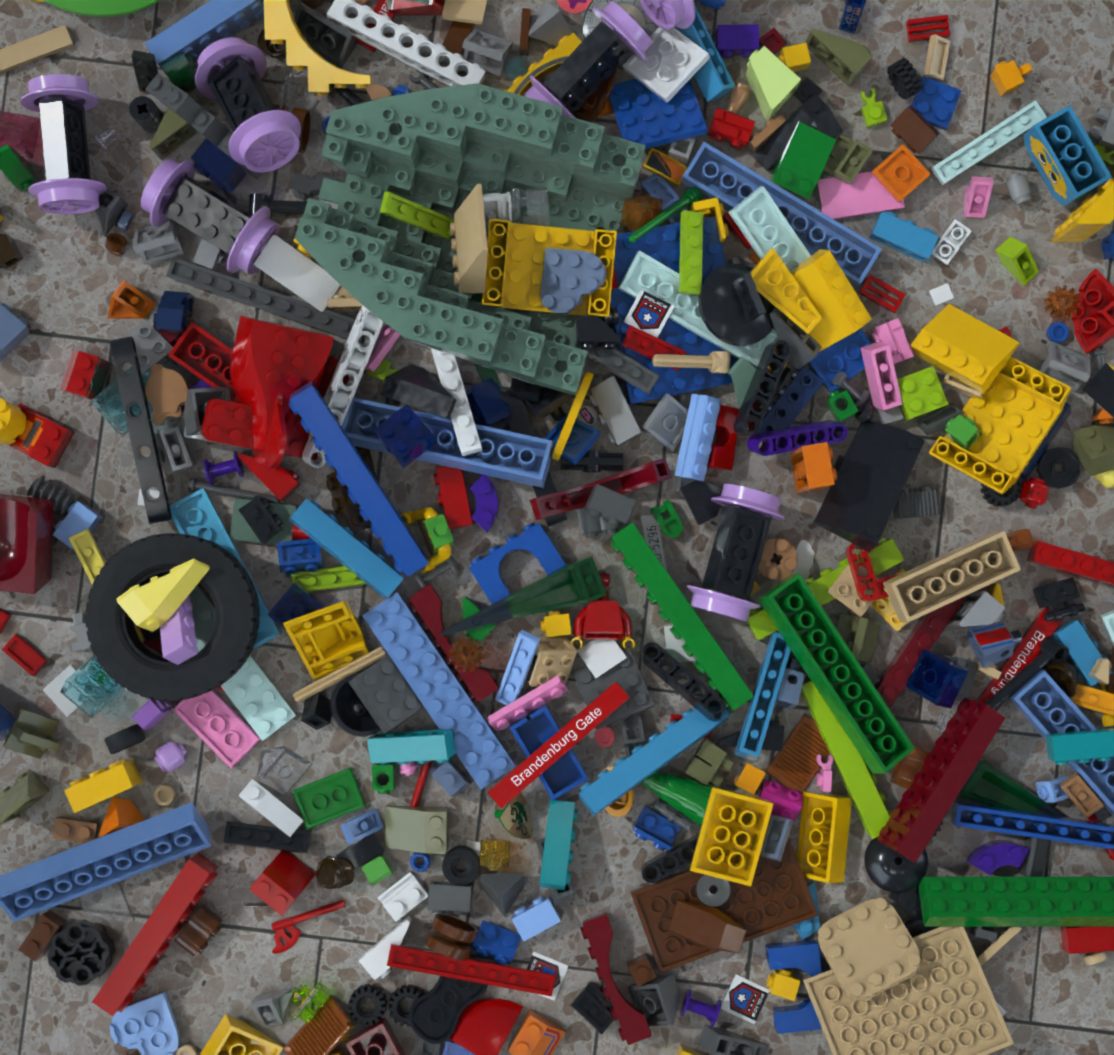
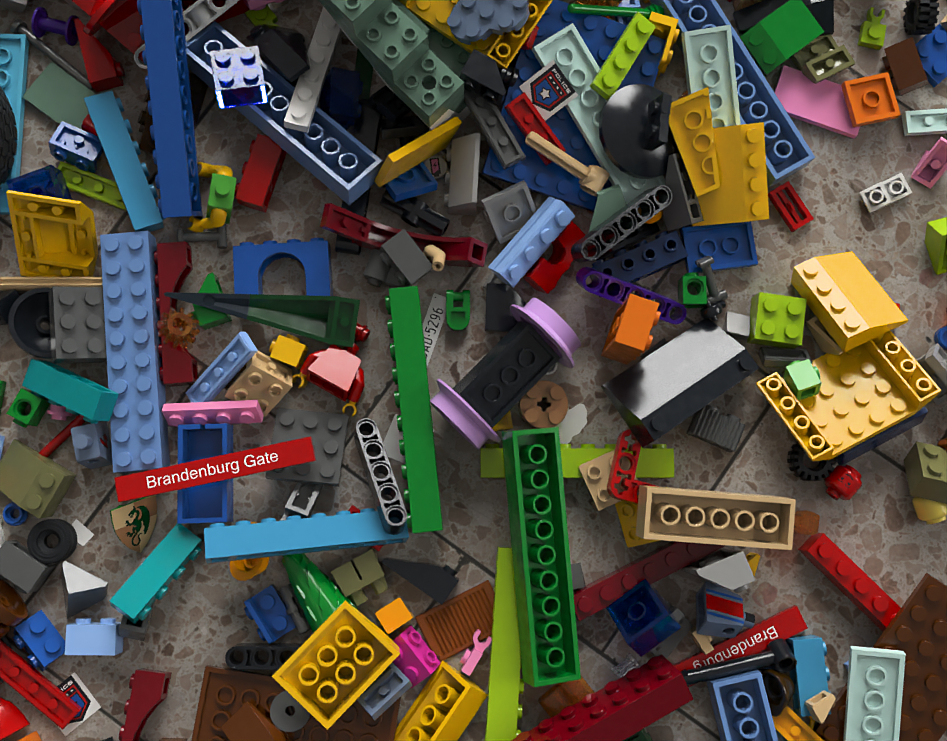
camera: 20 degrees right, 5 degrees down
(261, 519) = (62, 92): black bracket -> none
(487, 503) = (288, 195): dark purple brick -> none
(494, 853) = (91, 547): clear yellow brick -> none
(601, 655) = (315, 406): white sticker -> none
(605, 737) = (273, 491): coral tile -> none
(634, 489) = (436, 255): none -> tan arm
(732, 226) = (679, 68): red tile -> none
(764, 699) = (451, 539): dark azure brick -> none
(789, 693) = (479, 547): sand blue torso -> none
(859, 635) = (586, 530): olive bracket -> none
(881, 375) = (748, 280): bright pink brick -> none
(894, 335) = (776, 258): bright pink brick -> none
(904, 236) = (841, 162): dark azure brick -> none
(941, 294) = (849, 239): white sticker -> none
(1056, 593) = (812, 598): black plate -> none
(1070, 467) = (893, 477): black plate -> none

